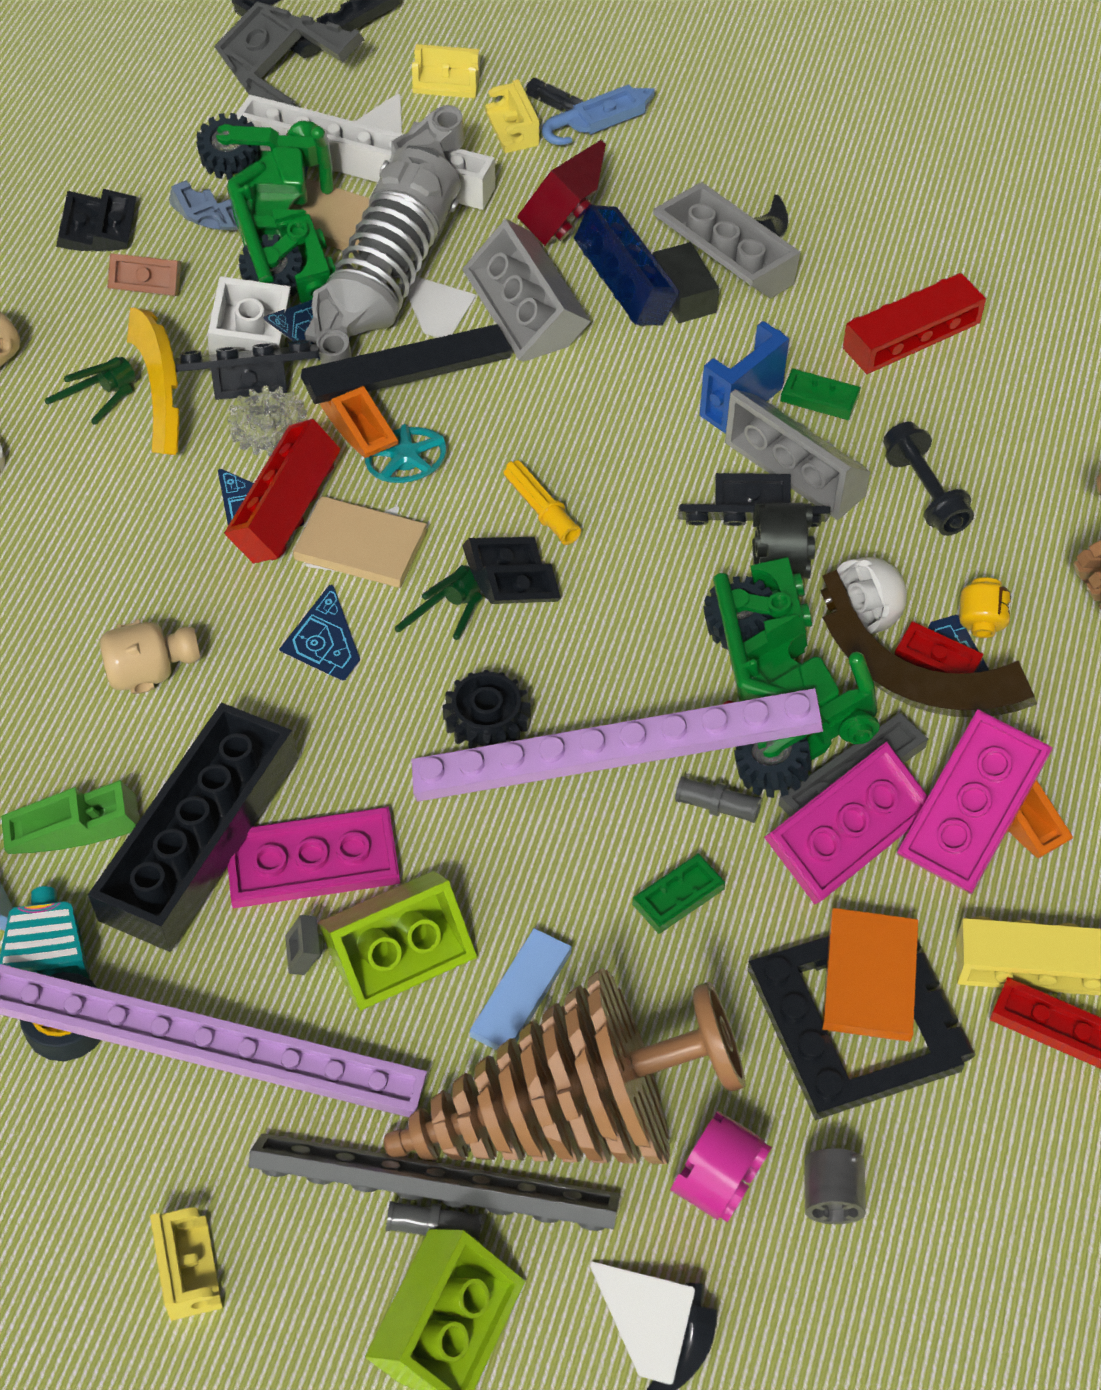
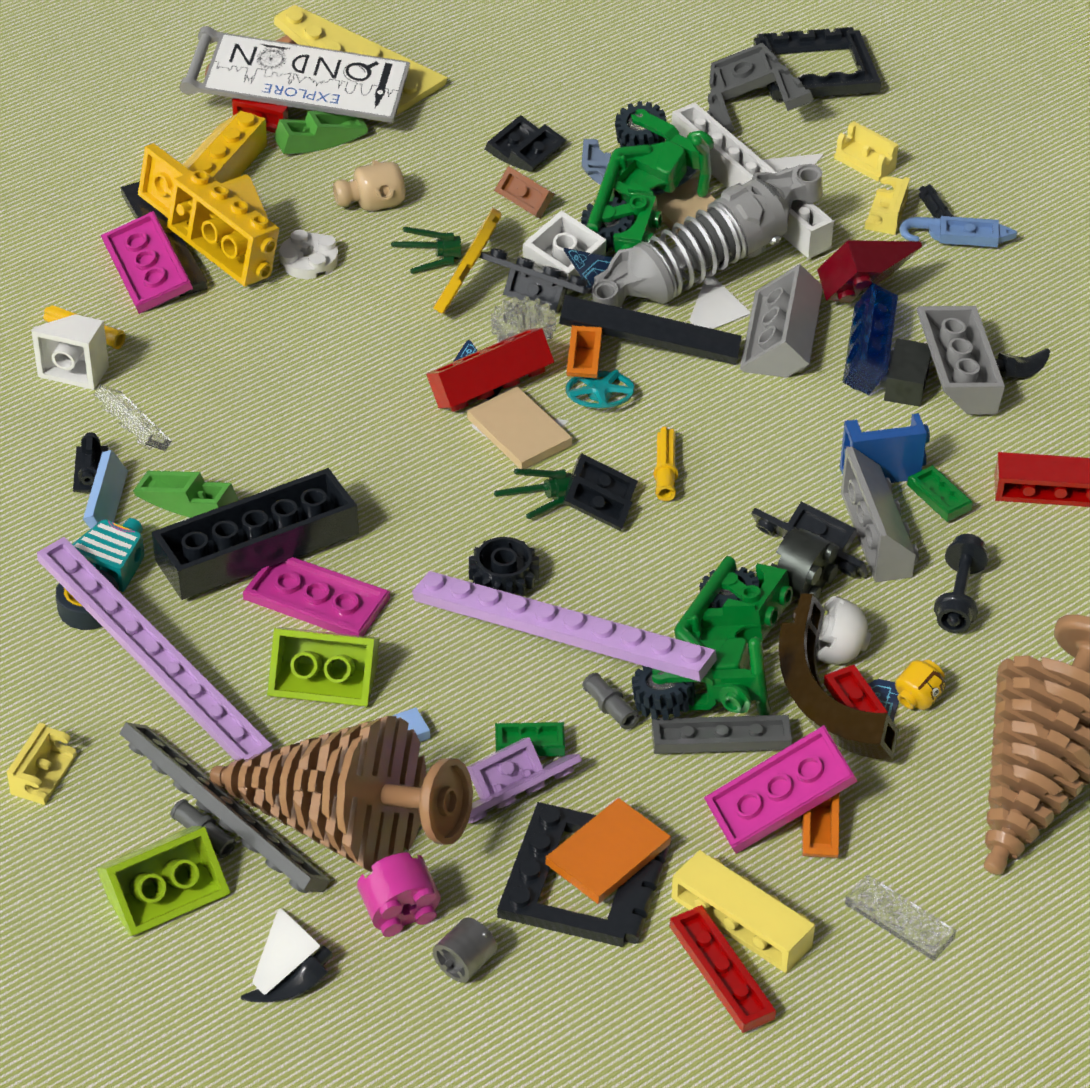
camera: 35 degrees right, 10 degrees down
(141, 655) = (313, 422): tan piece -> none
(303, 945) = (262, 638): dark grey plate -> none
(324, 638) = (443, 476): dark blue sticker -> none
(703, 946) = (511, 772): none -> lavender bracket
(848, 823) = (682, 758): dark pink tile -> none

